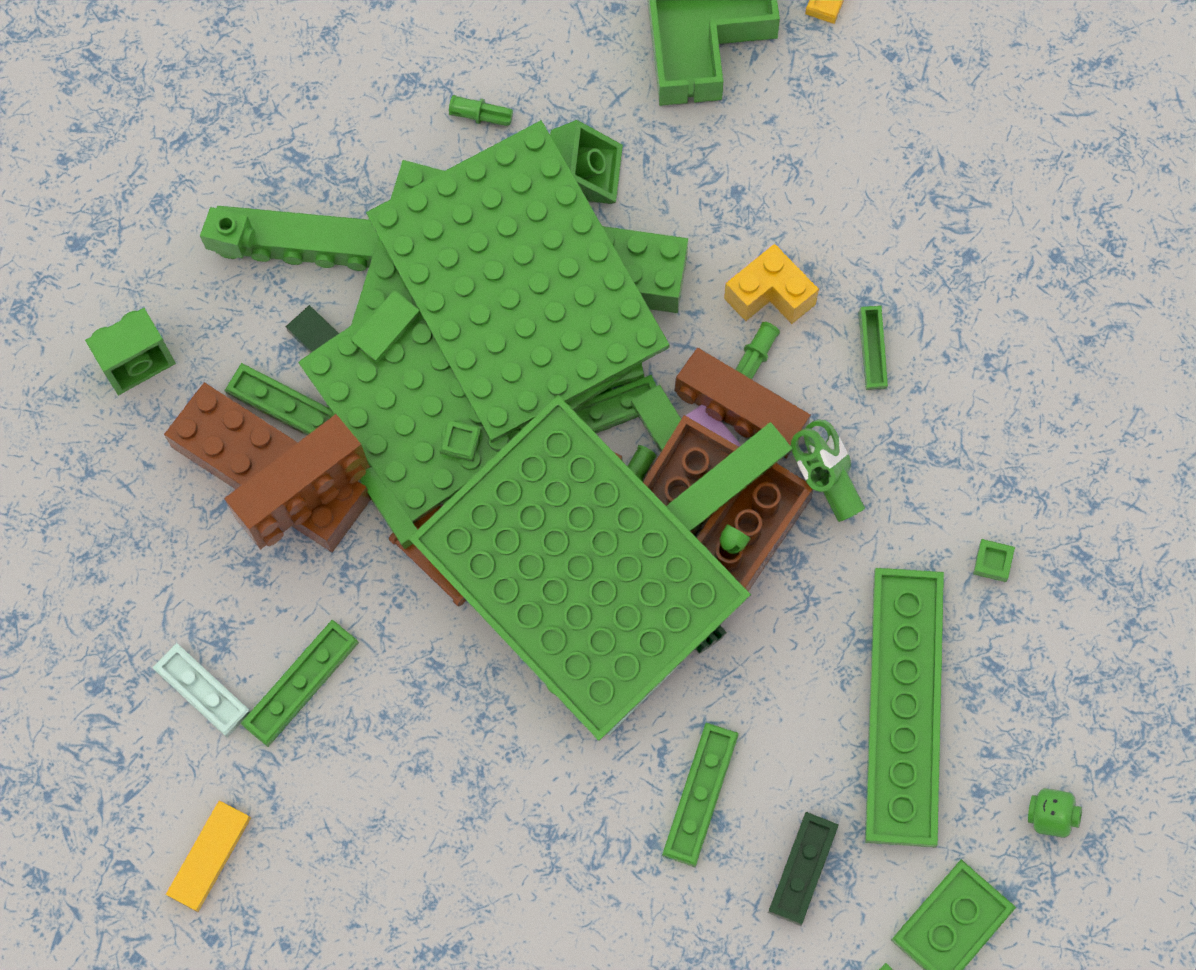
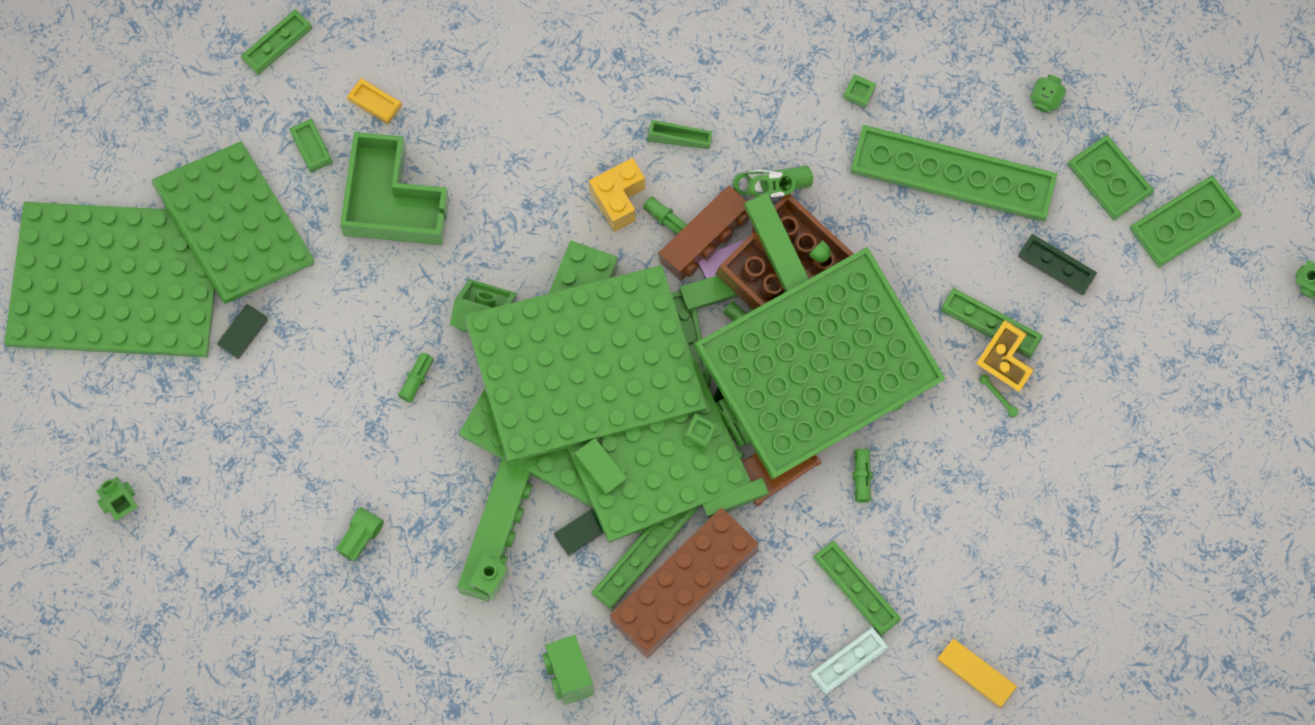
camera: 80 degrees left, 0 degrees up
(279, 94) = (362, 529): none -> bright green piece
(298, 482) = (719, 545): dark orange brick -> none
(451, 661) = (862, 475): none -> bright green pin
(580, 844) = (1012, 411): none -> bright green hinge
(640, 812) = (1000, 357): none -> yellow brick

